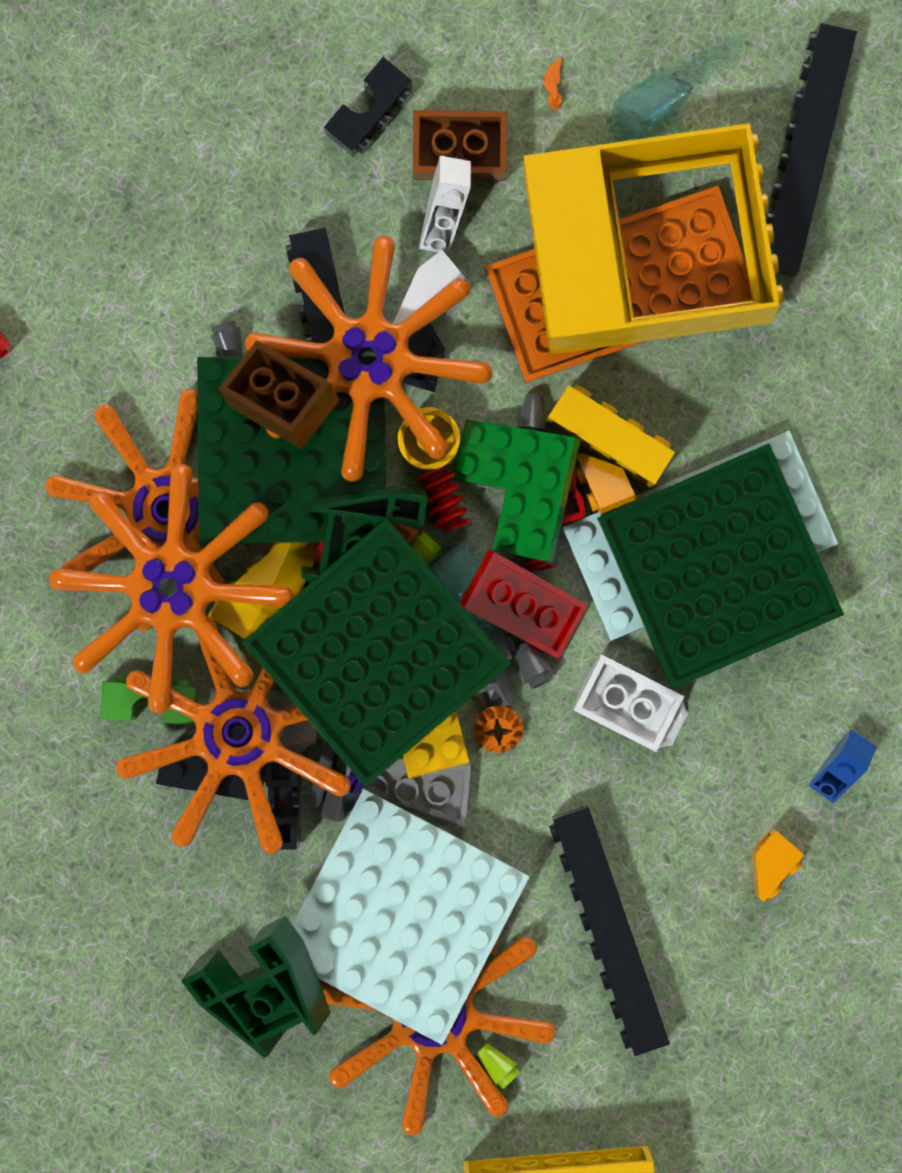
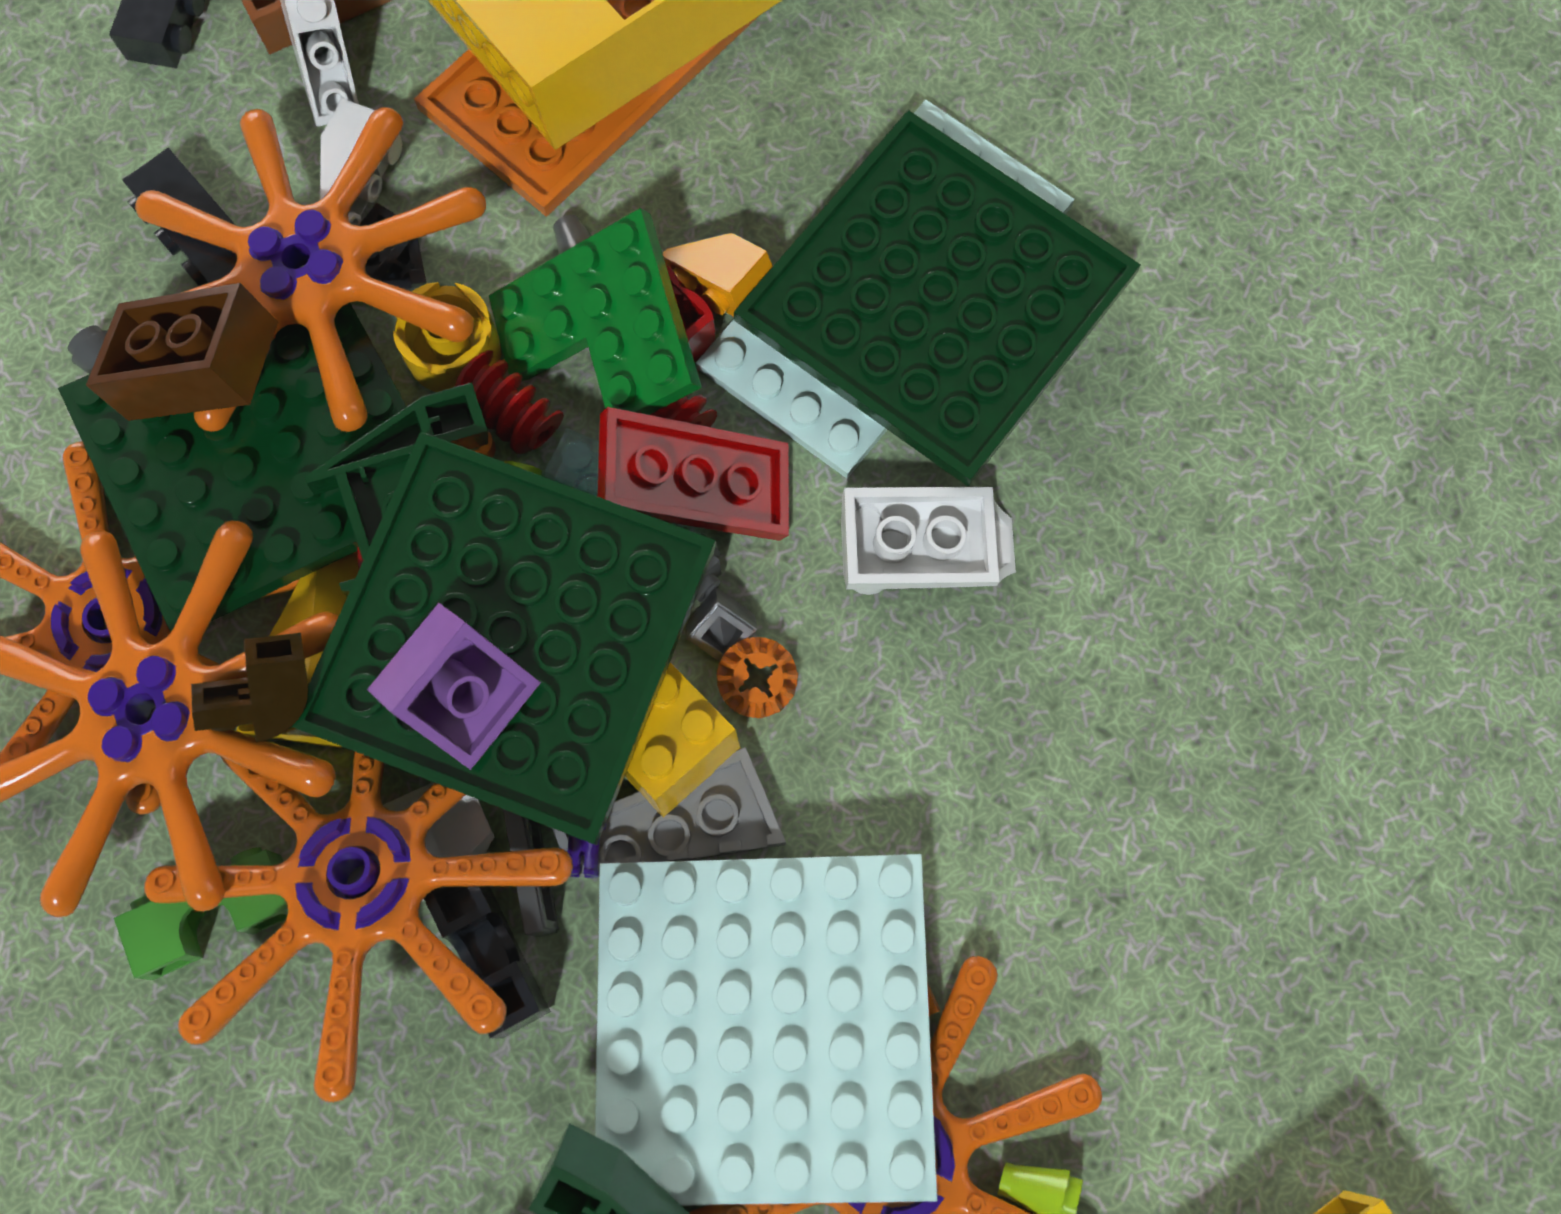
camera: 30 degrees left, 15 degrees down
(190, 773) = (300, 991): black arch -> none
(237, 620) = (269, 695): none -> dark brown brick
(335, 672) = (453, 686): none -> medium lavender slope
(338, 808) = (574, 910): flat silver slope -> none
(533, 665) = (758, 563): dark grey cone -> none
(610, 929) = (1093, 882): black brick -> none
(611, 436) = (695, 198): yellow brick -> none
(772, 862) = (1256, 650): light orange slope -> none
(843, 766) = (1267, 470): blue slope -> none

